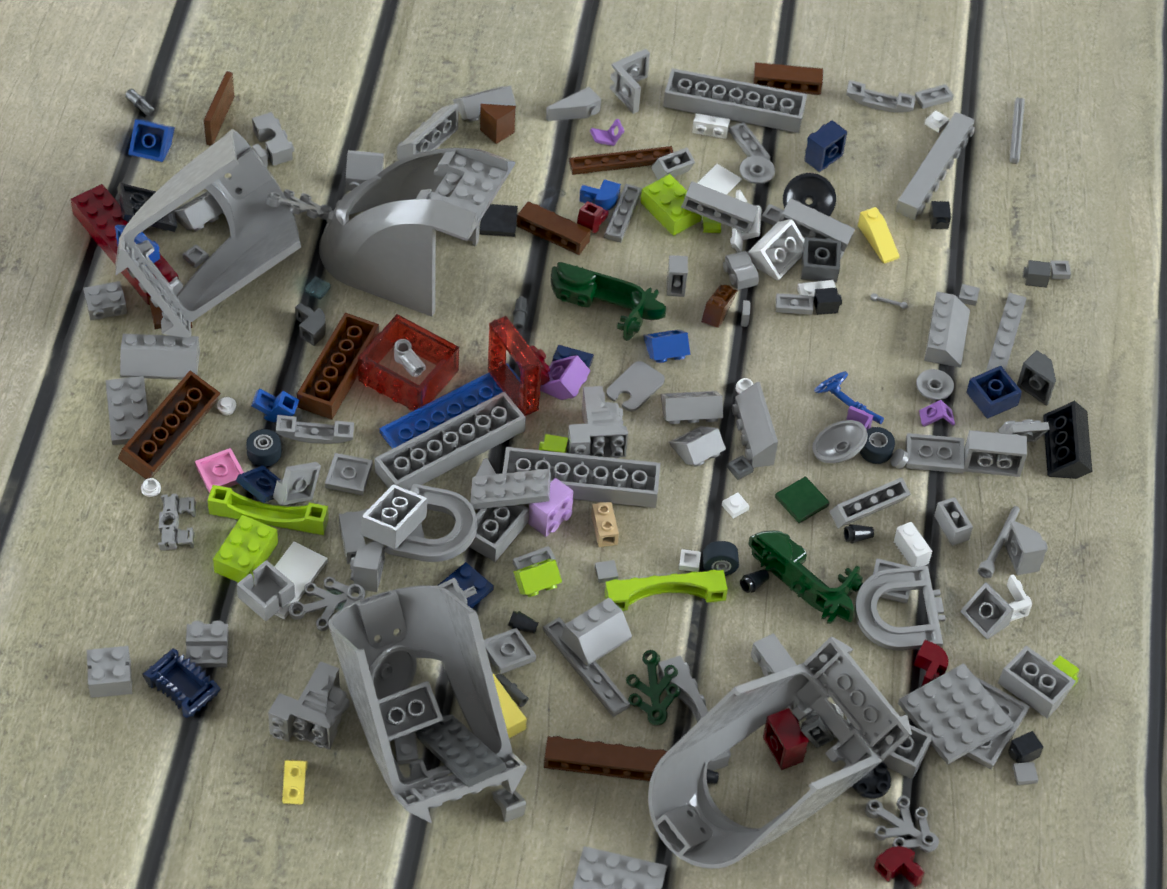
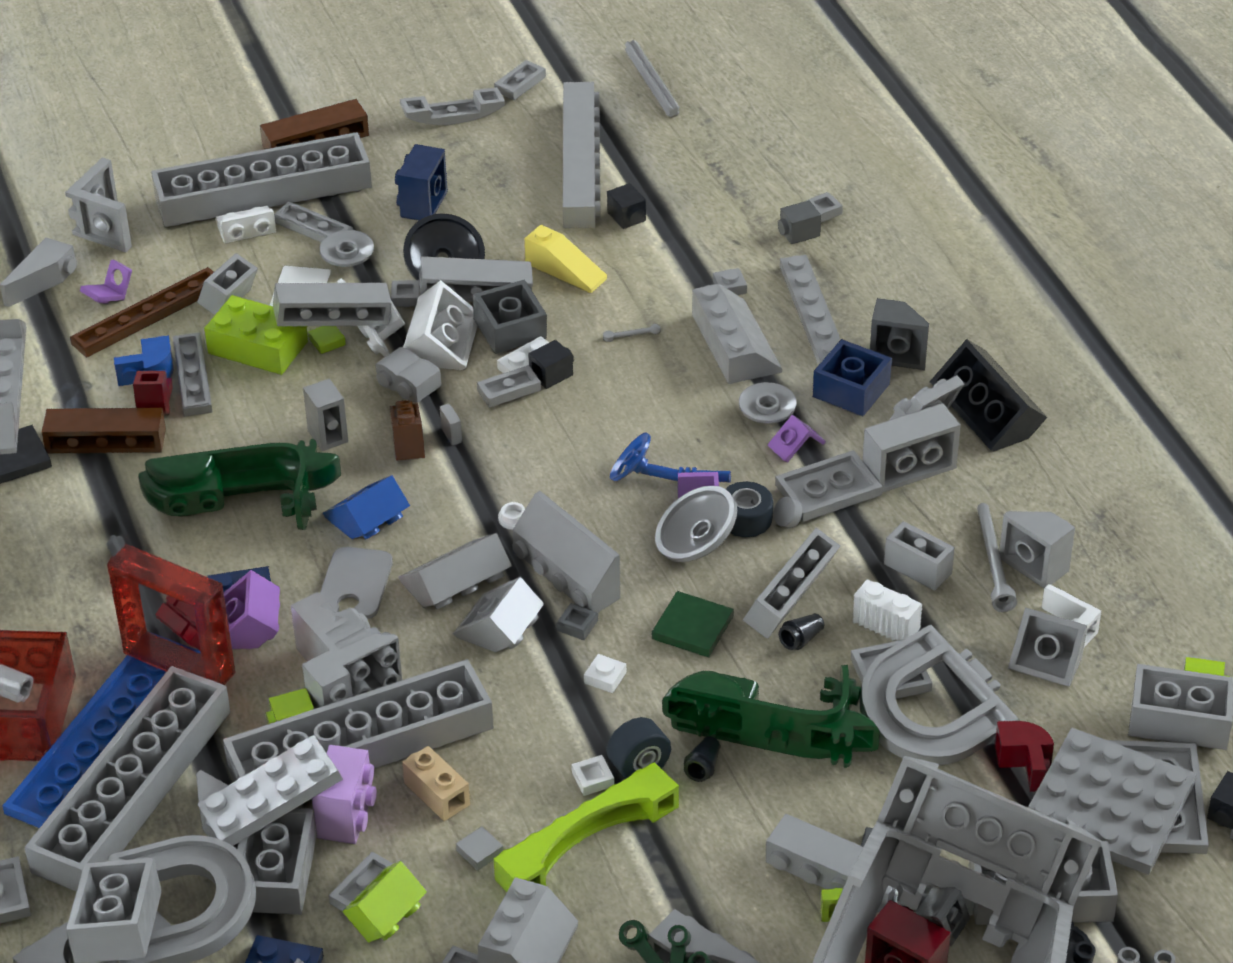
camera: 25 degrees left, 10 degrees down
(937, 121) = (543, 106): white plate -> none

